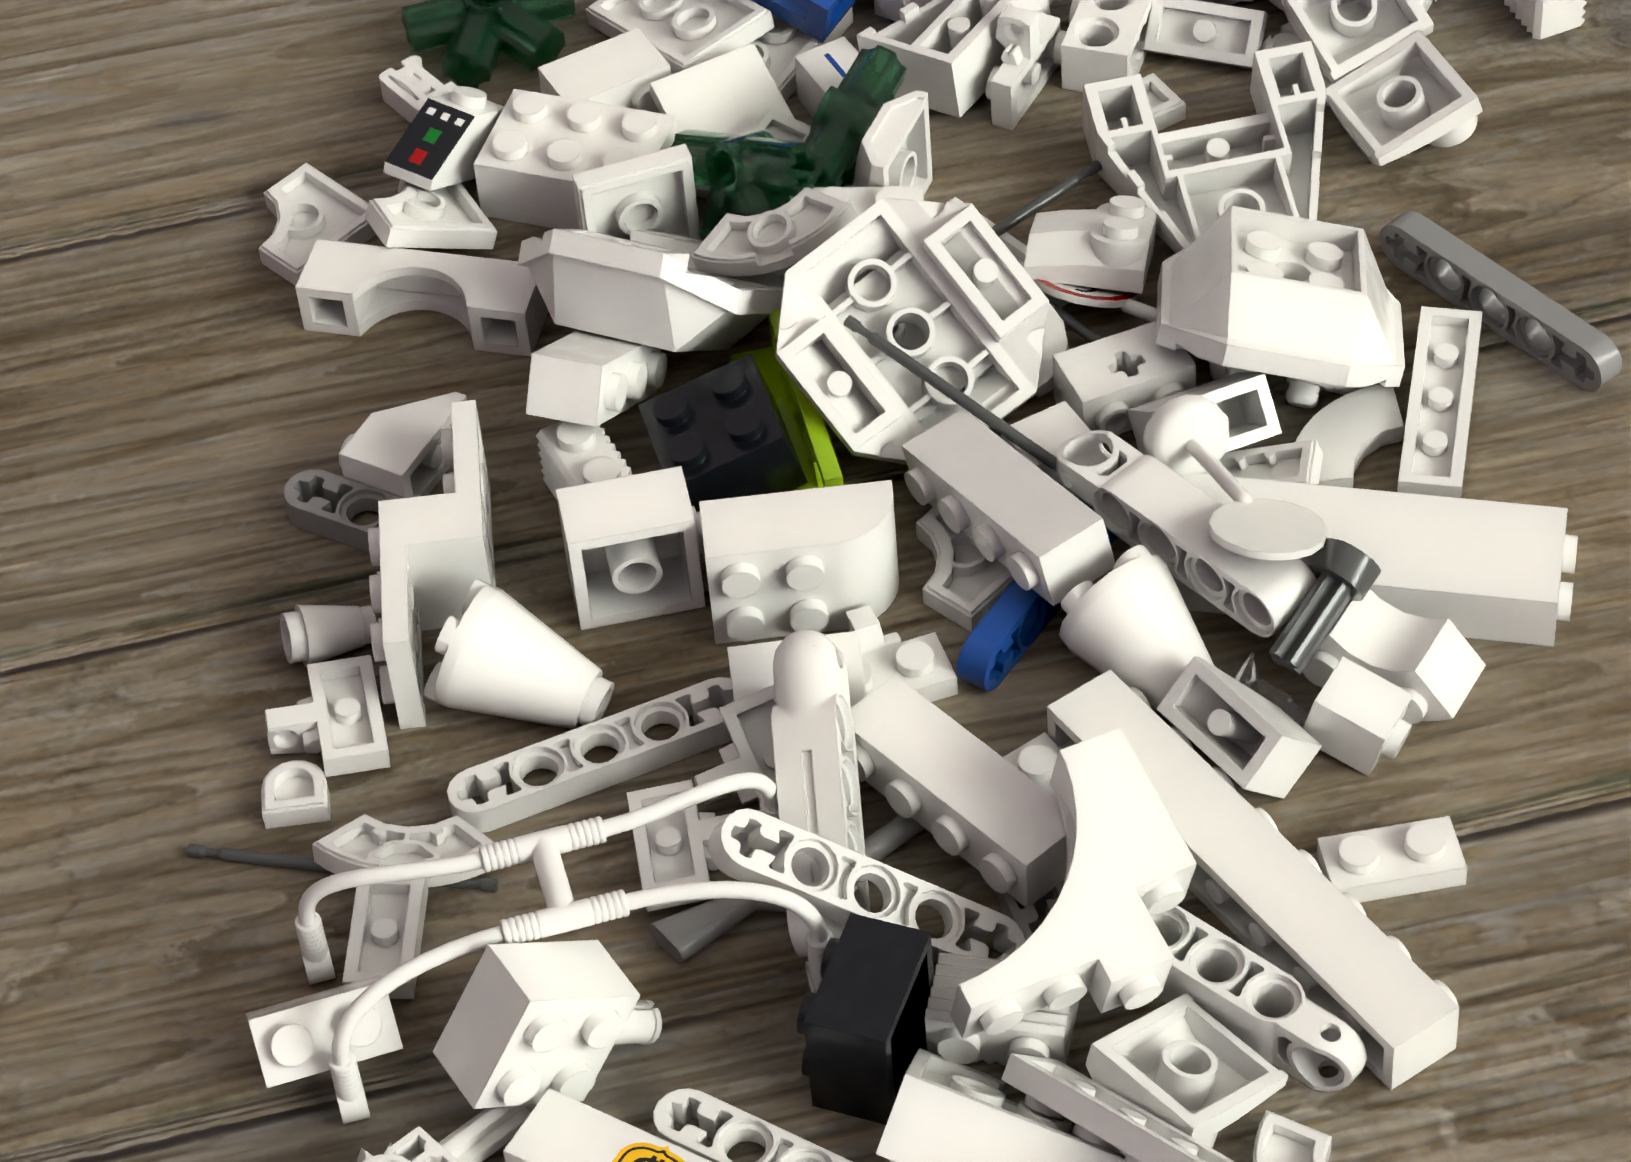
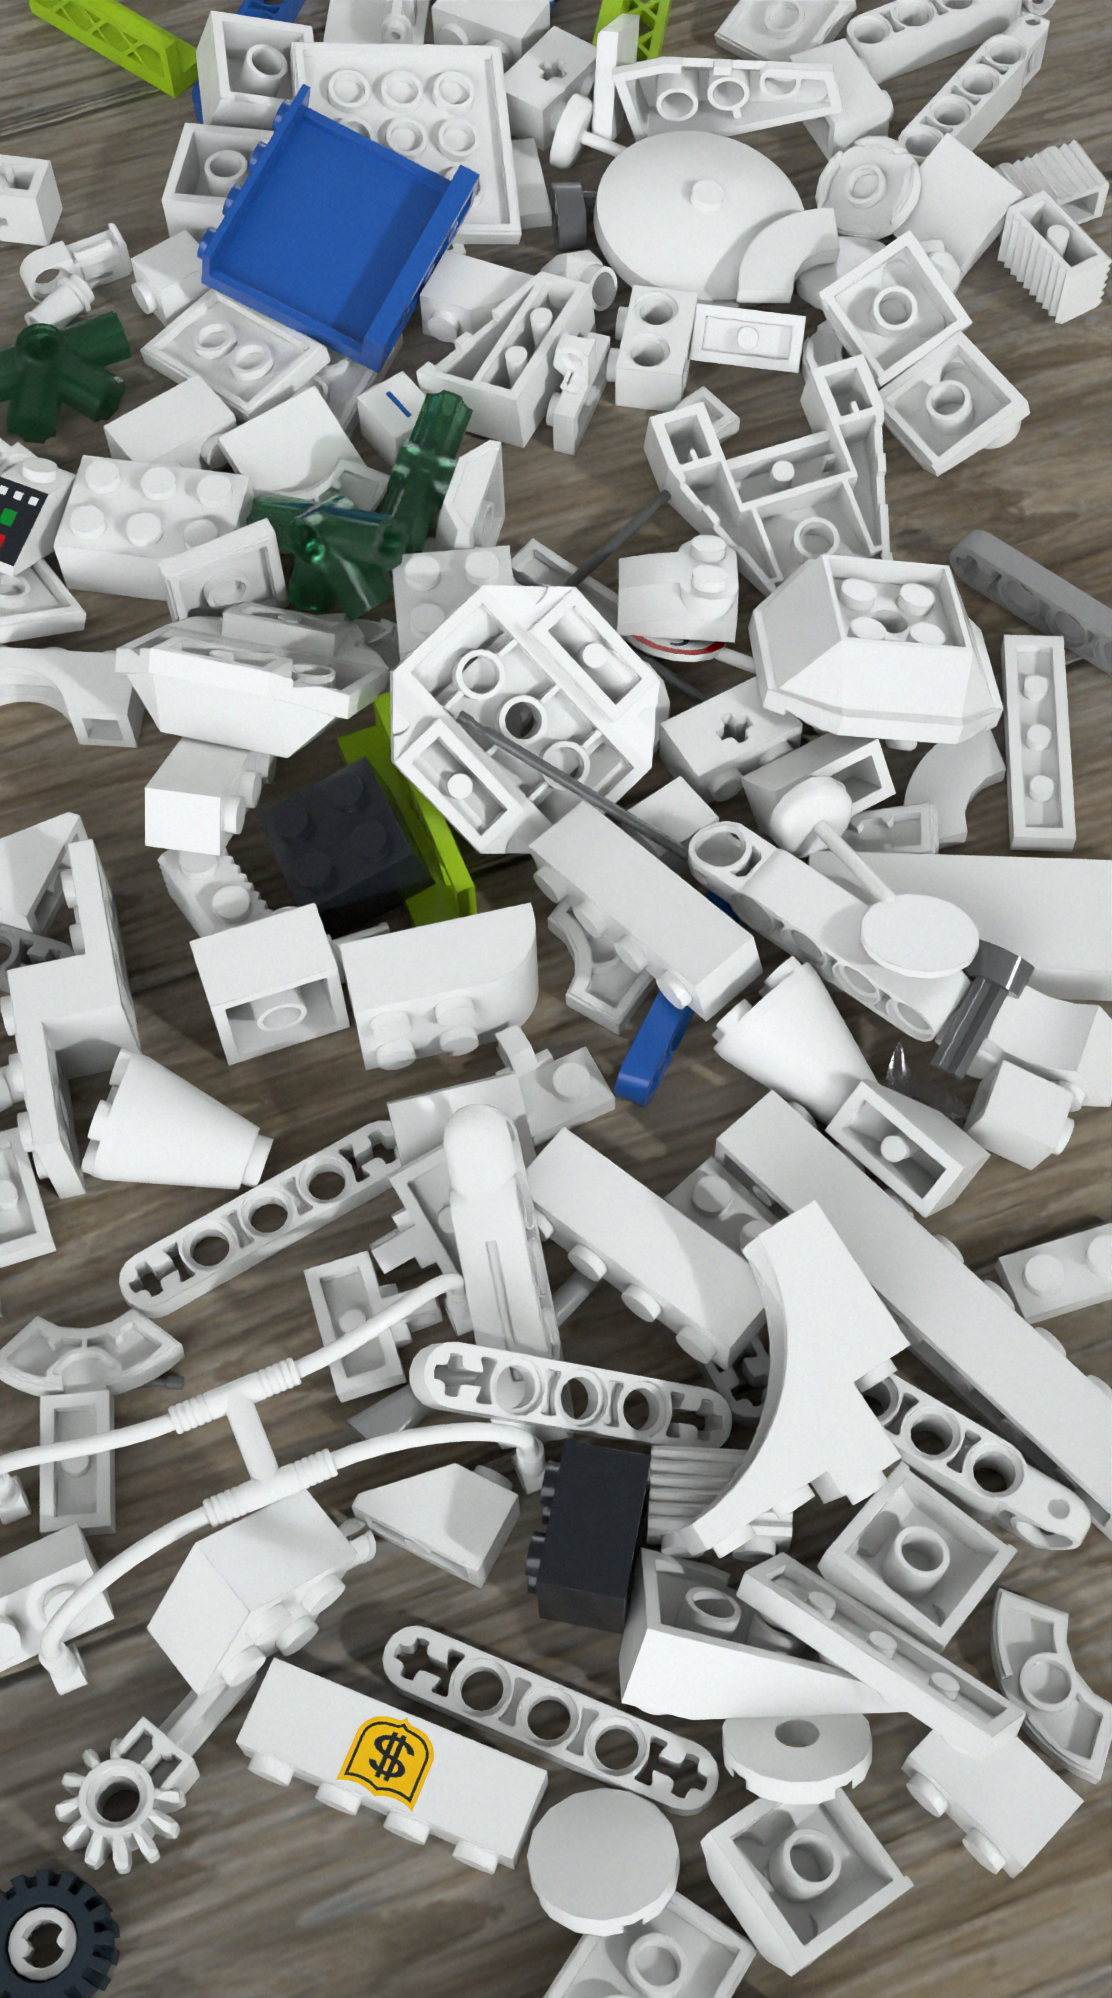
camera: 10 degrees left, 15 degrees up
(729, 1004) = (445, 1517): none -> white slope
(773, 238) = (371, 620): white tile -> none

